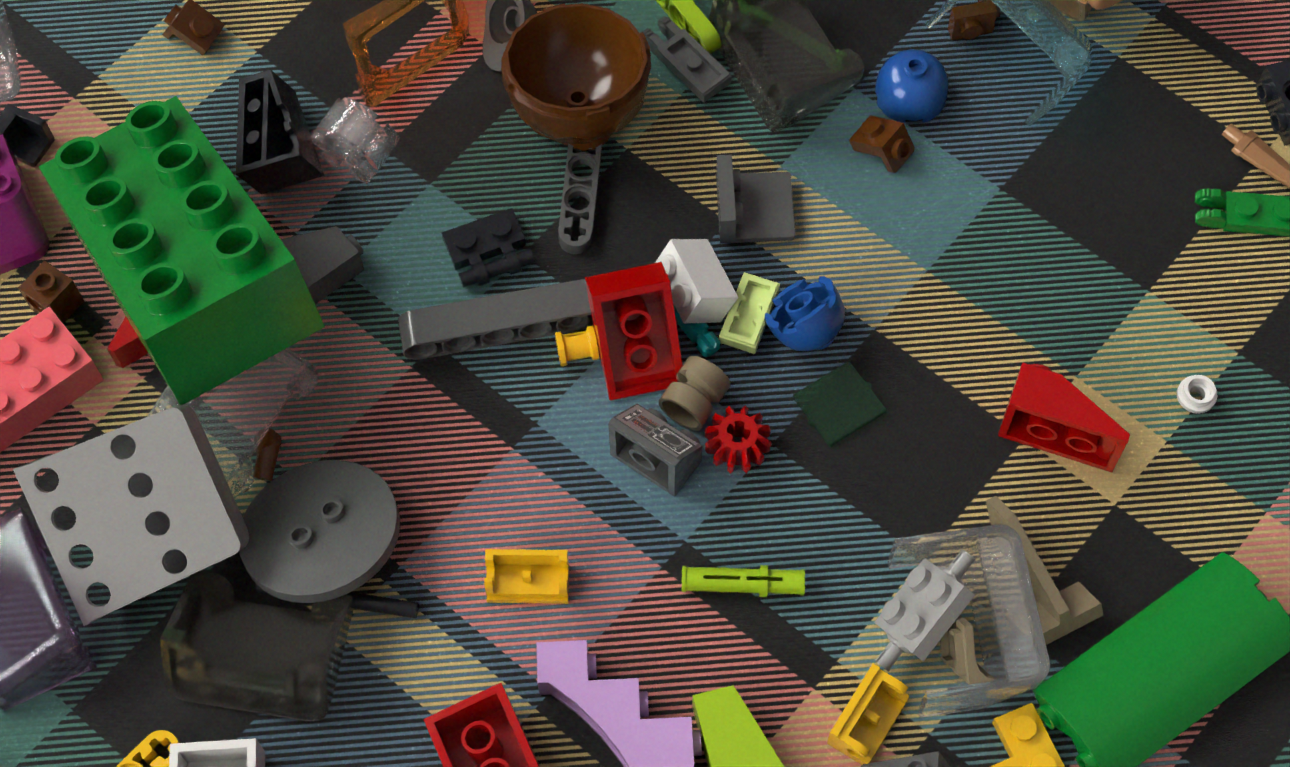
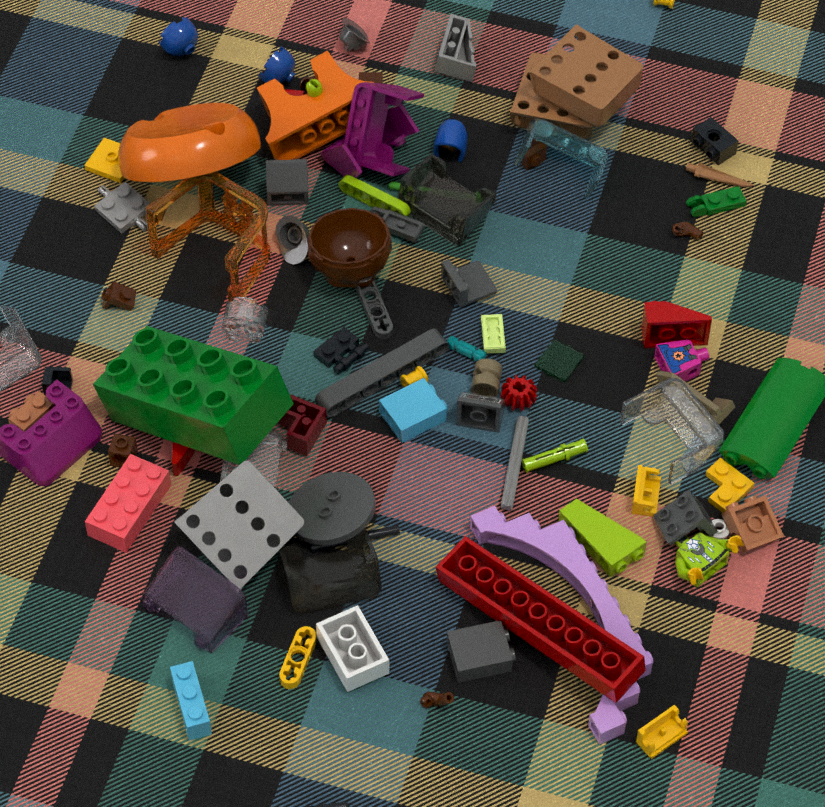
camera: 25 degrees left, 10 degrees down
(267, 456) = (284, 486): reddish brown arm -> none
(273, 135) = (198, 327): black wedge -> none
(357, 358) = (304, 424): none -> dark red brick
(527, 576) = (447, 491): yellow hinge -> none
(547, 401) = (413, 410): none -> medium azure brick
(635, 329) = (443, 357): red slope -> none
(669, 567) = (514, 463): none -> light grey axle
(697, 281) = (460, 326): white brick -> none
(807, 315) = (525, 322): blue cylinder -> none
(884, 139) = (518, 228): reddish brown bracket -> none
(912, 86) = (519, 198): blue cylinder -> none
(924, 609) = (650, 431): light grey plate -> none
(959, 652) = (676, 441): dark tan piece -> none
(1047, 487) = (680, 358): none -> torso
(1172, 243) = (685, 229): none -> reddish brown arm
(1201, 385) = (731, 293): white plate -> none

